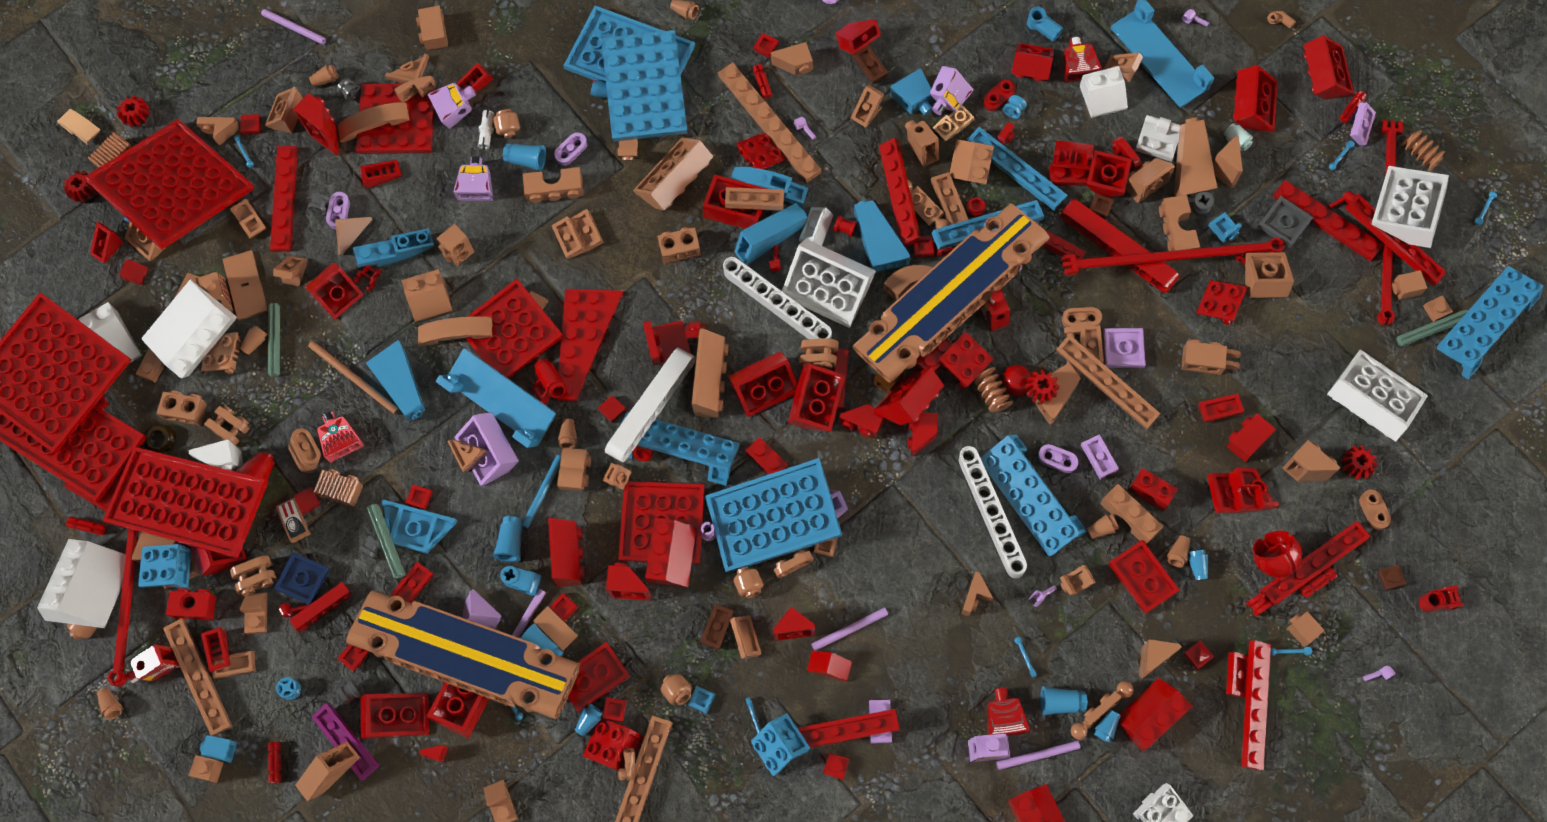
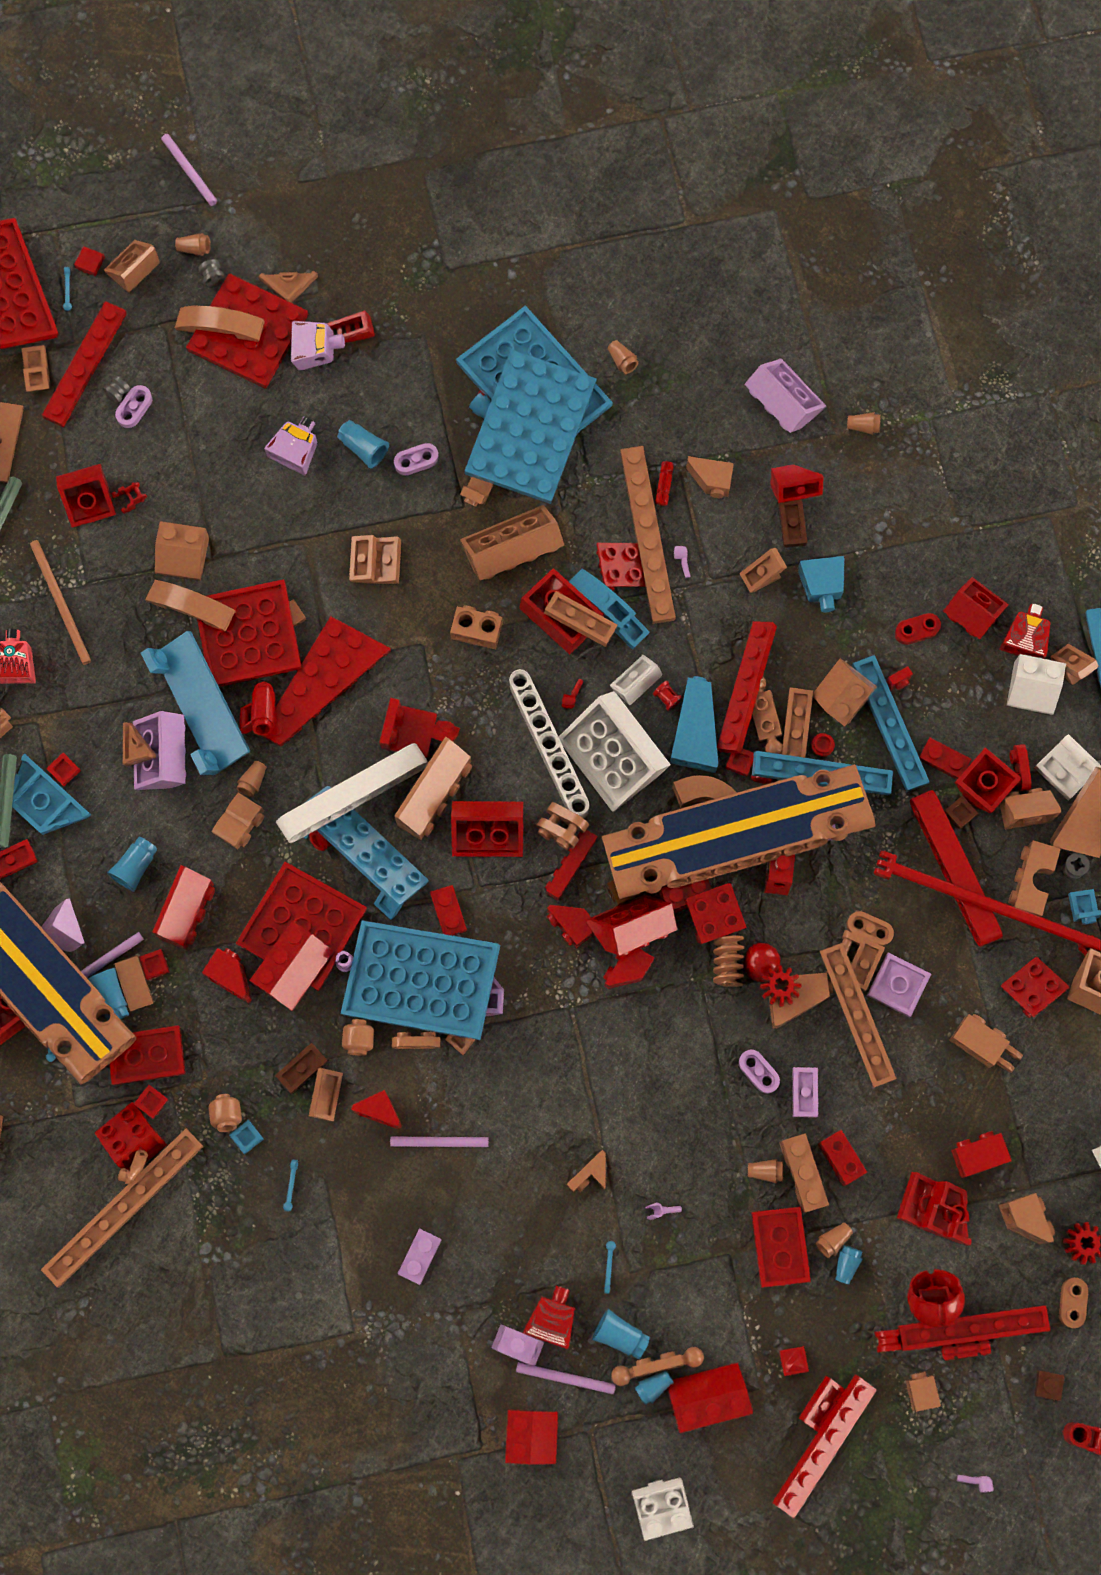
camera: 20 degrees right, 5 degrees up
(220, 127) = (55, 250): nougat slope -> none
(291, 270) = (52, 449): nougat slope -> none
(318, 122) = (160, 298): red slope -> none
(348, 231) = (134, 435): nougat tile -> none
(381, 178) = (189, 391): red slope -> none
(394, 250) = (171, 481): dark azure slope -> none
(397, 378) = (104, 628): dark azure slope -> none
(419, 85) = (290, 309): nougat slope -> none
(432, 28) = (336, 245): nougat brick -> none
(455, 245) = (235, 509): nougat brick -> none
(486, 129) = (336, 391): white pin -> none
(506, 123) = (361, 396): nougat head -> none
(524, 580) = (126, 915): dark azure piece -> none
(542, 492) = (193, 829): dark azure bar -> none
(568, 186) = (393, 500): nougat arch -> none
(589, 718) = (120, 1097): dark azure cone -> none
(612, 409) = (313, 774): red tile -> none
(617, 476) = (279, 852): nougat bracket -> none
(766, 45) = (689, 444): red plate -> none
(769, 232) = (577, 663): dark azure slope -> none
(779, 743) = (301, 1227): dark azure bracket -> none
(816, 398) = (533, 874): red slope -> none
(829, 665) = (397, 1170): red slope -> none
(836, 766) = (348, 1279): red plate -> none
(850, 728) = (365, 1244): red plate -> none
(922, 142) = (801, 642): nougat torso -> none
(949, 90) = (862, 598): lavender torso -> none
(954, 123) = (849, 636): light nougat slope -> none
(992, 522) = (661, 1082): white beam -> none
(1015, 106) = (926, 651): dark azure wheel -> none
(1030, 495) = (707, 1097): dark azure bracket -> none
(1045, 25) = (1012, 574): dark azure piece -> none
(1062, 247) = (889, 833): red piece -> none
(1073, 155) = (960, 739): red hinge -> none
(1077, 580) = (706, 1214): nougat bracket -> none
(1154, 654) = (743, 1339): nougat slope -> none
(1221, 408) = (967, 1106): red plate -> none
(1307, 651) = (912, 1416): dark azure hinge -> none

